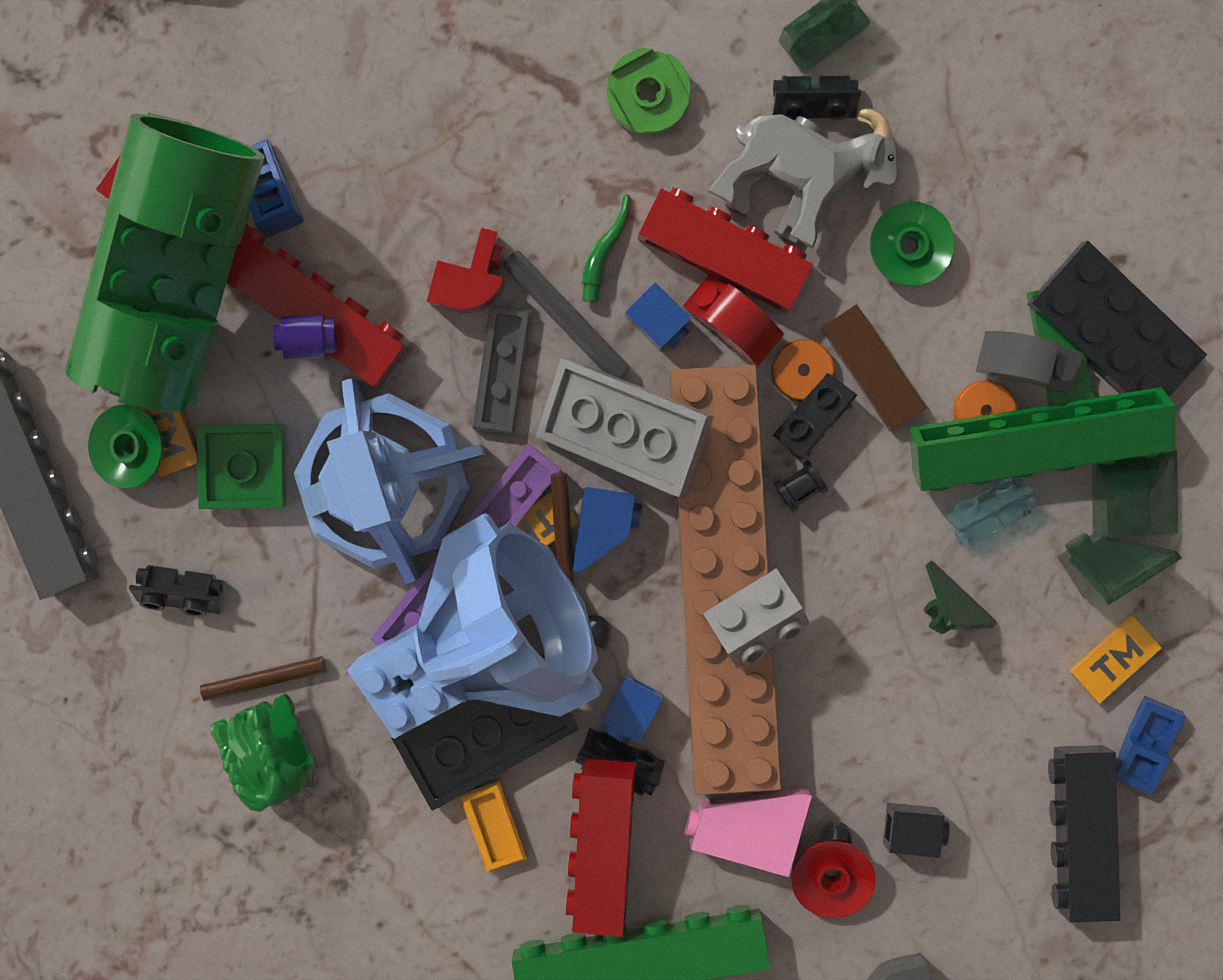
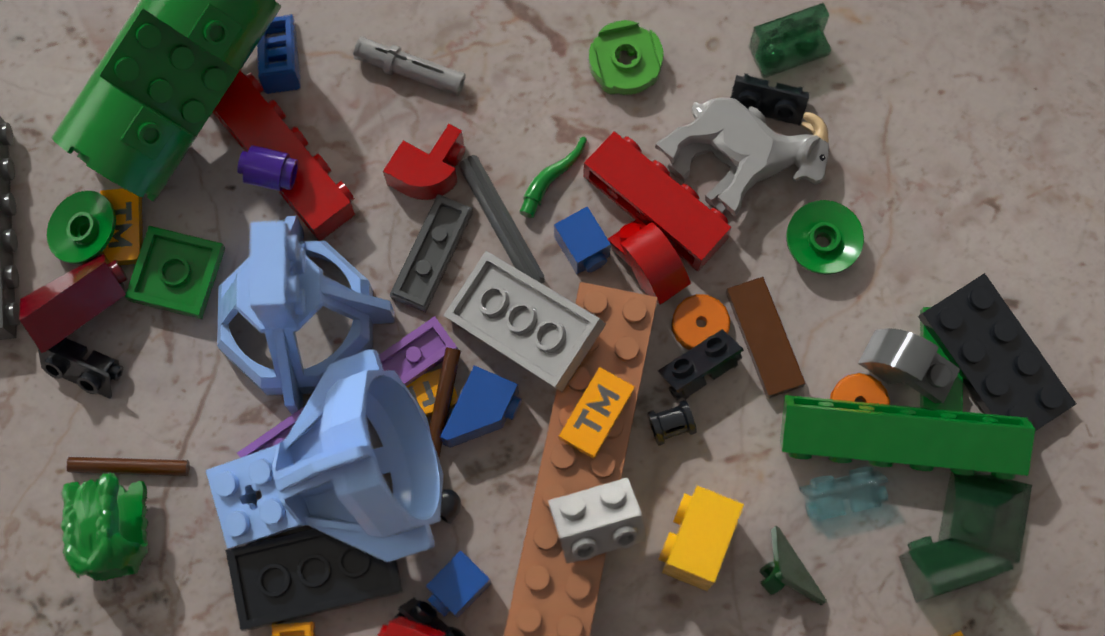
camera: 15 degrees right, 15 degrees down
(145, 533) = (71, 301): none -> dark red slope
(414, 165) = (410, 66): none -> light grey pin
(727, 509) = (596, 412): none -> light orange tile
(861, 603) = (702, 537): none -> yellow brick

